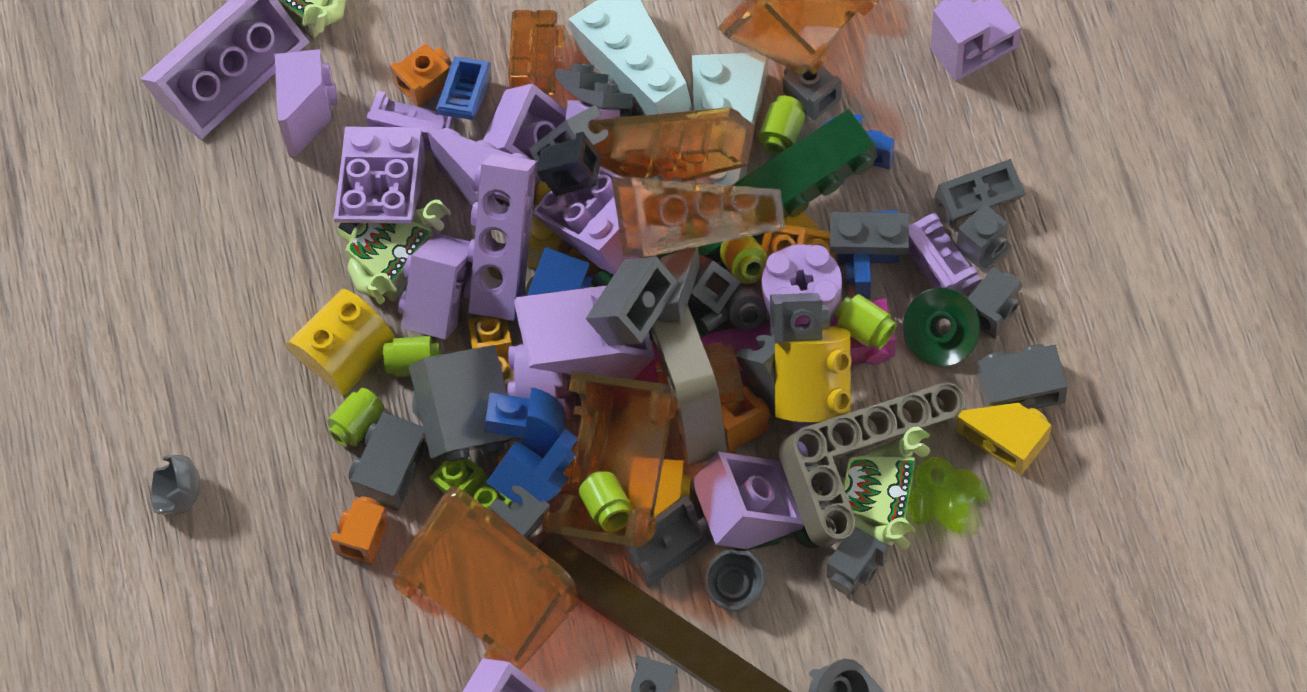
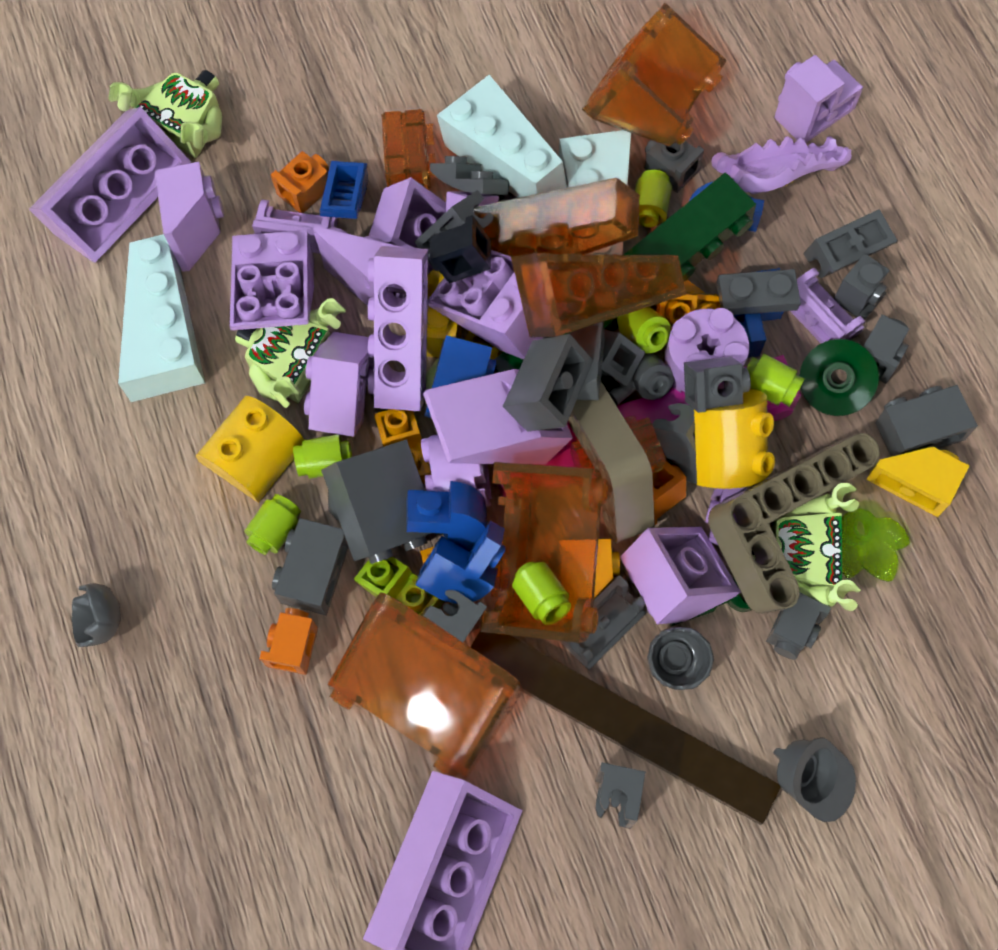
camera: 10 degrees left, 5 degrees up
(260, 213) = (157, 330): none -> light aqua wedge
(919, 101) = (777, 166): none -> lavender animal

